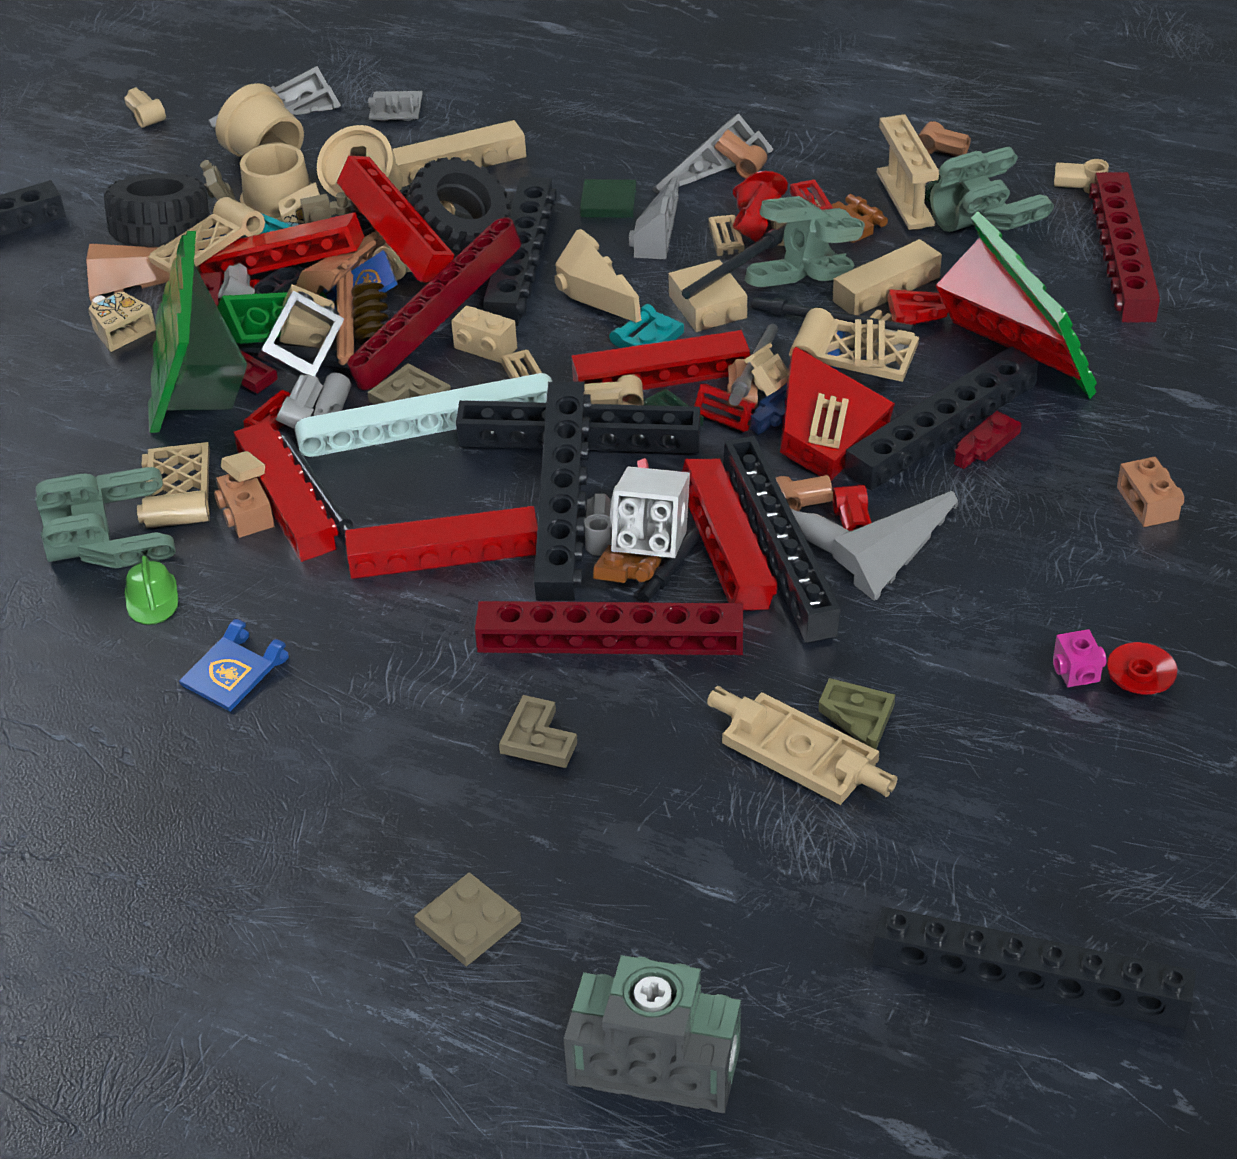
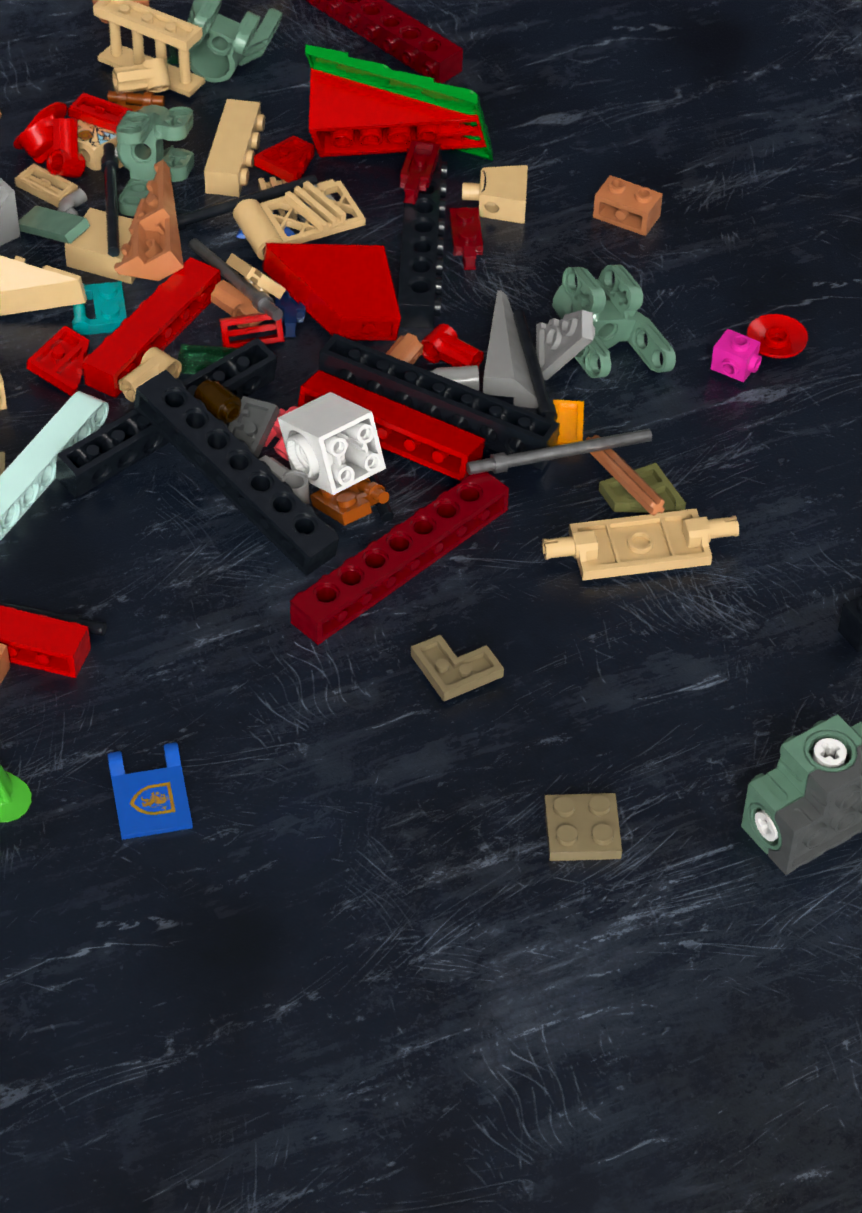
camera: 50 degrees left, 5 degrees up
(441, 542) = (181, 581): red brick -> none
(515, 357) = (38, 407): tan tile -> none
(563, 345) = (61, 360): none -> red wing
(605, 431) = (219, 400): none -> dark brown brick
(608, 469) = (254, 423): none -> dark grey bracket
(681, 258) = (53, 224): none -> sand green tile
(722, 253) = (72, 201): none -> light grey arm
(730, 301) = (155, 239): none -> nougat wedge
(759, 608) = (501, 462): none -> flat silver bar
(832, 405) = (368, 286): tan tile -> none
(845, 683) = (629, 479): none -> nougat axle
(862, 597) = (545, 407): none -> black bar
(871, 624) = (571, 420): none -> light orange tile
(884, 196) = (149, 76): none -> tan piece
(925, 553) = (562, 340): none -> light grey wing
(990, 362) = (418, 169): none -> dark red hinge
(992, 562) = (613, 317): none -> sand green piece
(1054, 422) = (500, 193): none -> tan torso

